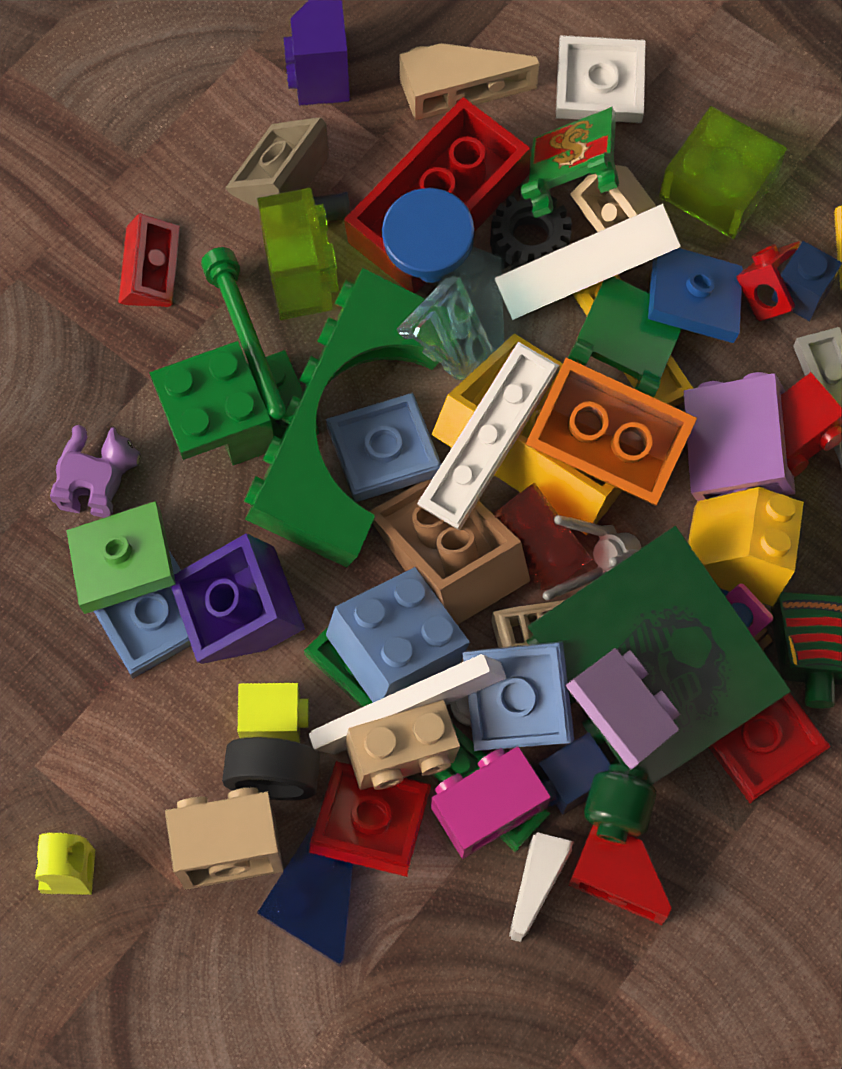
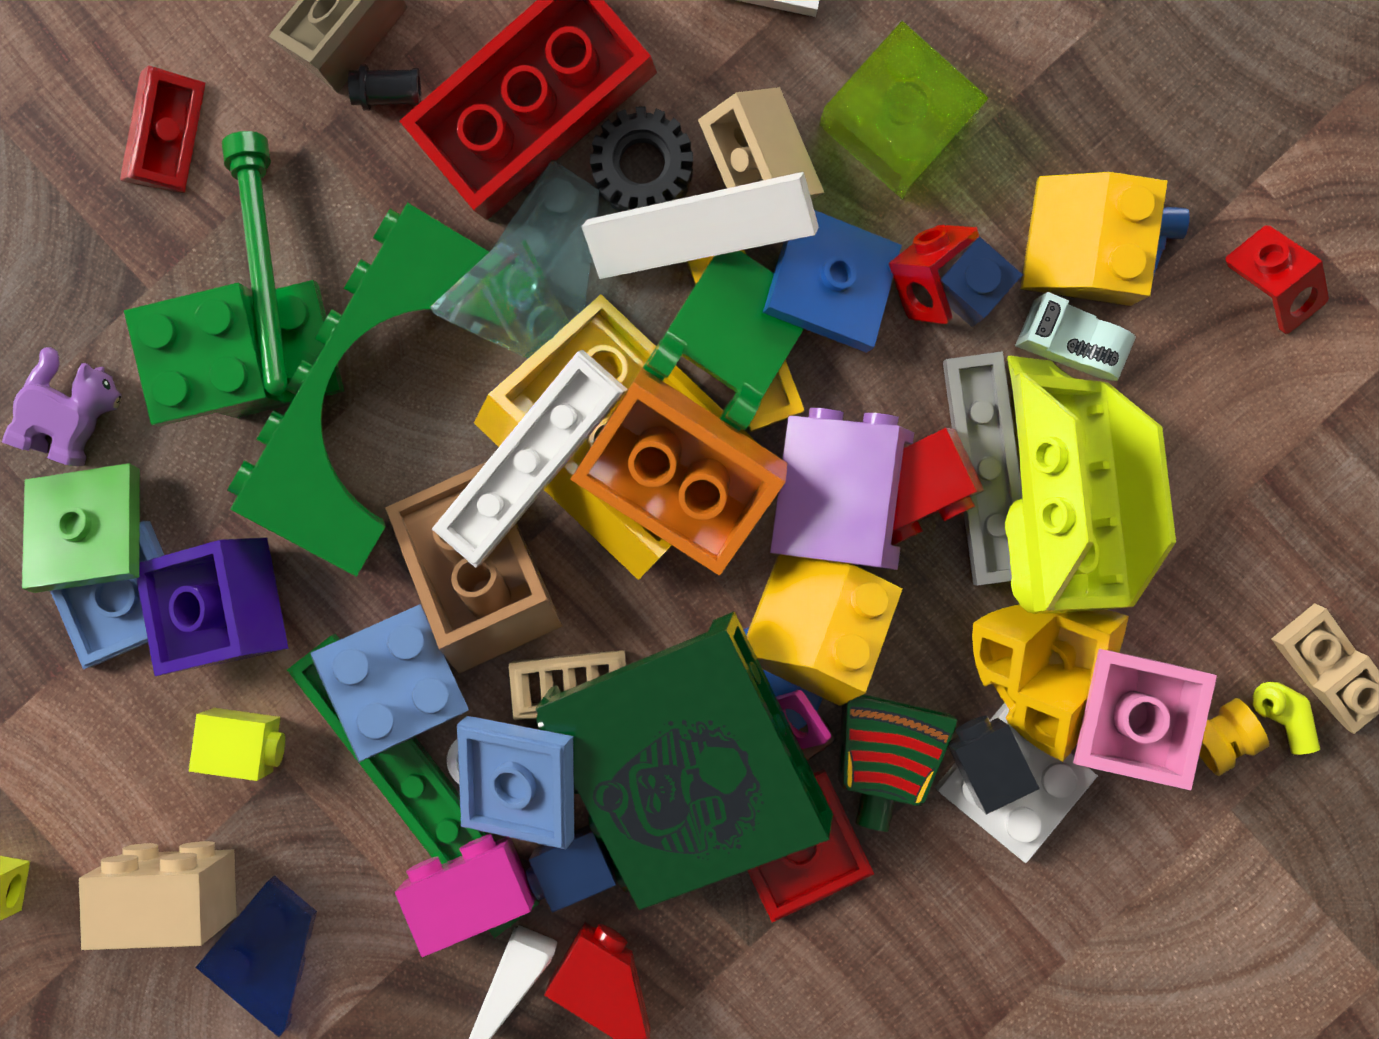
camera: 10 degrees right, 20 degrees up
(272, 766) = (222, 820): black tyre -> none
(298, 253) = (333, 158): clear neon green brick -> none
(370, 824) = (334, 883): red tile -> none
(383, 447) = (416, 426): medium blue tile -> none
(402, 746) = (372, 820): tan brick -> none
(428, 233) = (497, 165): blue tile -> none
(446, 686) = (387, 775): white tile -> none
(548, 548) = (578, 582): clear red brick -> none
(571, 153) = (707, 64): green flag -> none
(607, 553) = (667, 608): light grey plant -> none
(620, 803) = (608, 932): dark green head -> none
(624, 706) = (620, 843): lavender slope -> none

